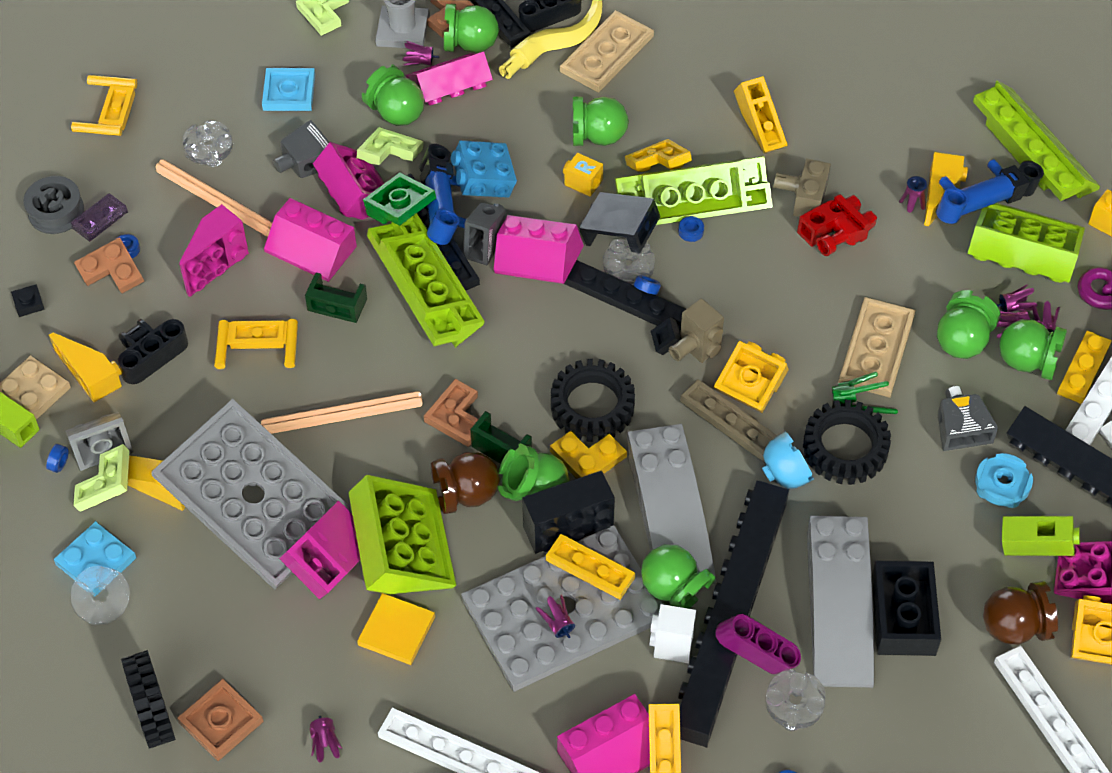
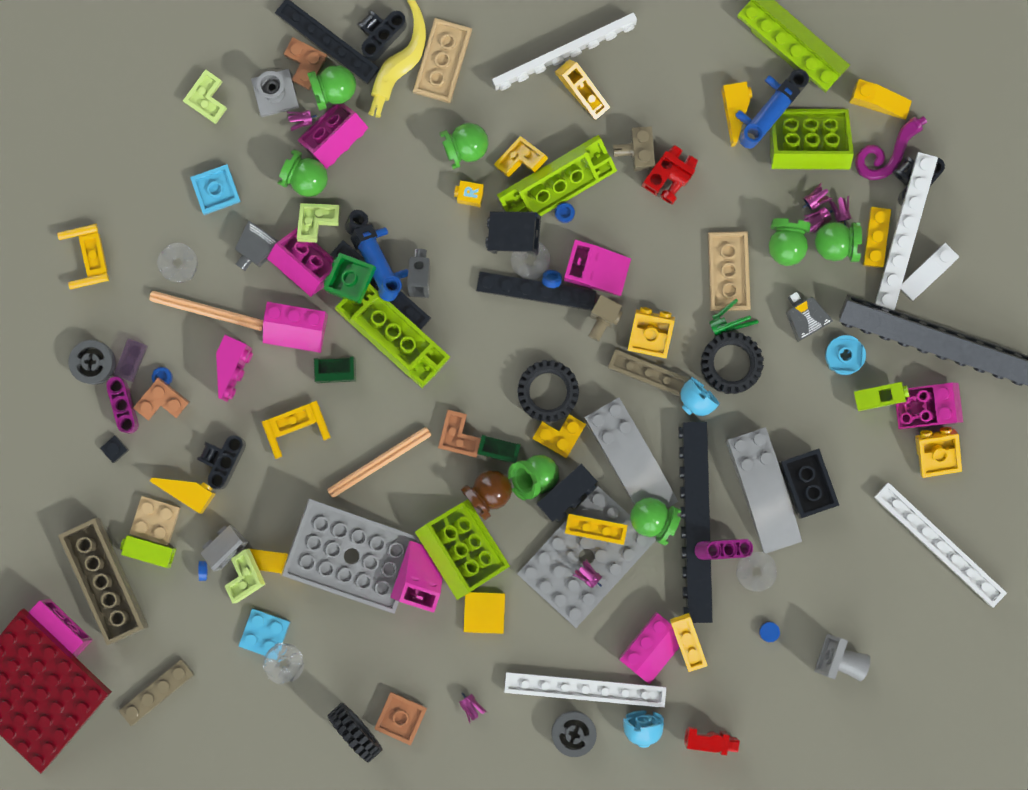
camera: 15 degrees left, 30 degrees up
(62, 254) = (116, 398): none -> magenta beam
(483, 169) = (396, 218): dark azure brick -> none
(537, 249) = (463, 281): dark pink slope -> none
(665, 335) = (580, 319): black plate -> none
(673, 633) = (666, 559): white brick -> none
(704, 276) = (597, 268): none -> dark pink slope
(774, 74) = (571, 49): none -> white plate
(915, 188) = (719, 124): piece -> none
(1018, 614) = (881, 464): reddish brown tile -> none

